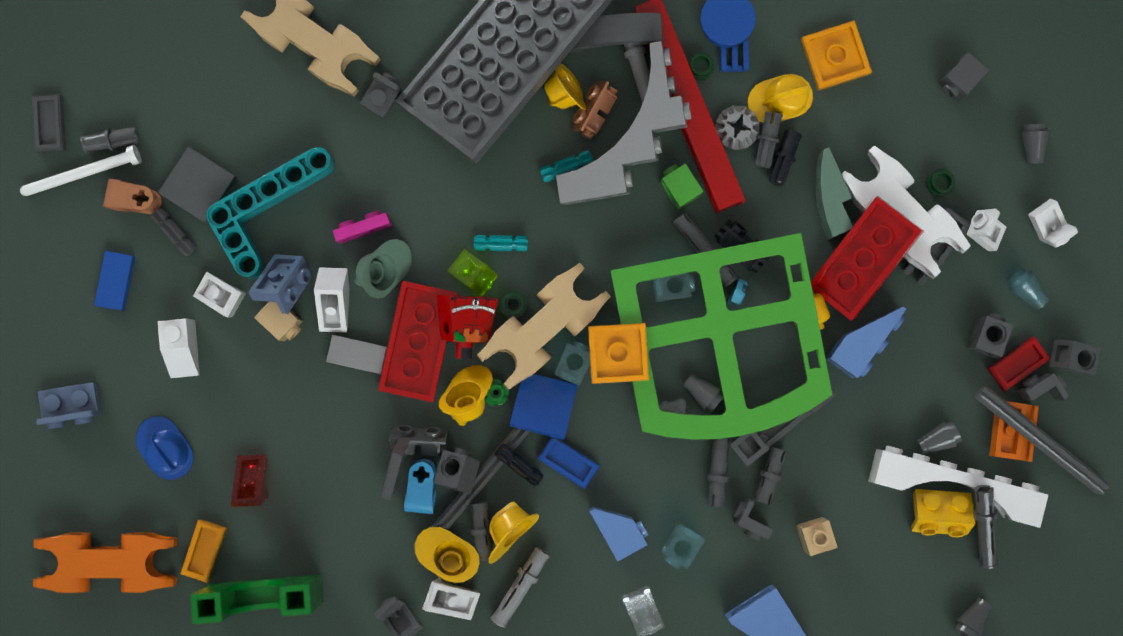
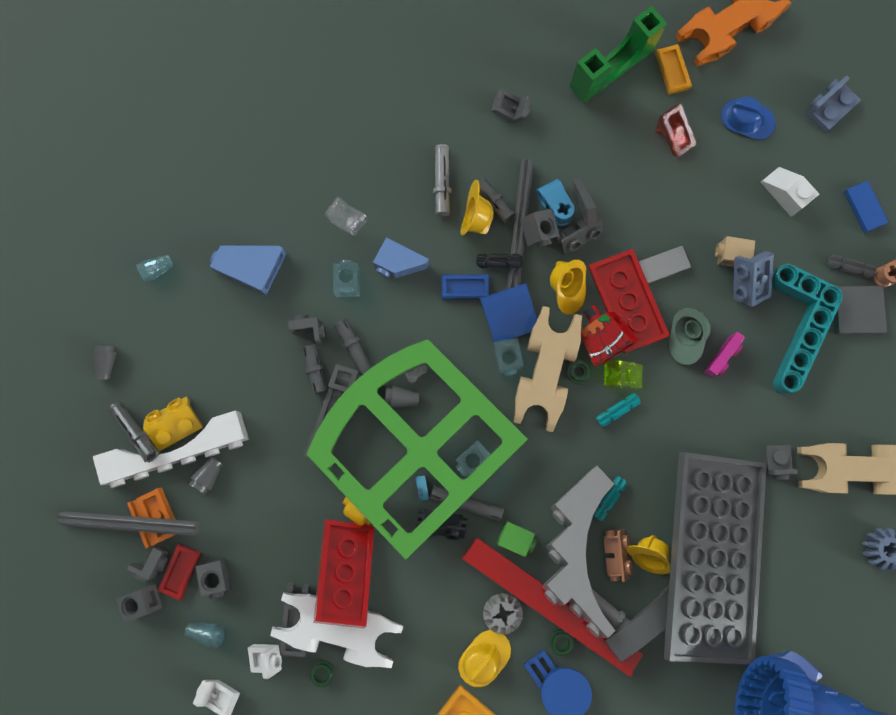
camera: 150 degrees right, 5 degrees down
(219, 295) = (787, 241): white slope -> none
(332, 299) = (709, 291): white slope -> none
(446, 555) = (508, 166): yellow piece -> none
(451, 600) = (485, 139): white slope -> none
(499, 399) = (542, 300): green plate -> none
(618, 353) = (482, 382): light orange tile -> none
(768, 140) = (474, 619): dark grey axle -> none
(785, 157) = (452, 614): black axle -> none
(816, 536) = (254, 346): tan brick -> none
(830, 196) = (399, 607): sand green slope -> none
(856, 348) = (308, 504): medium blue slope -> none

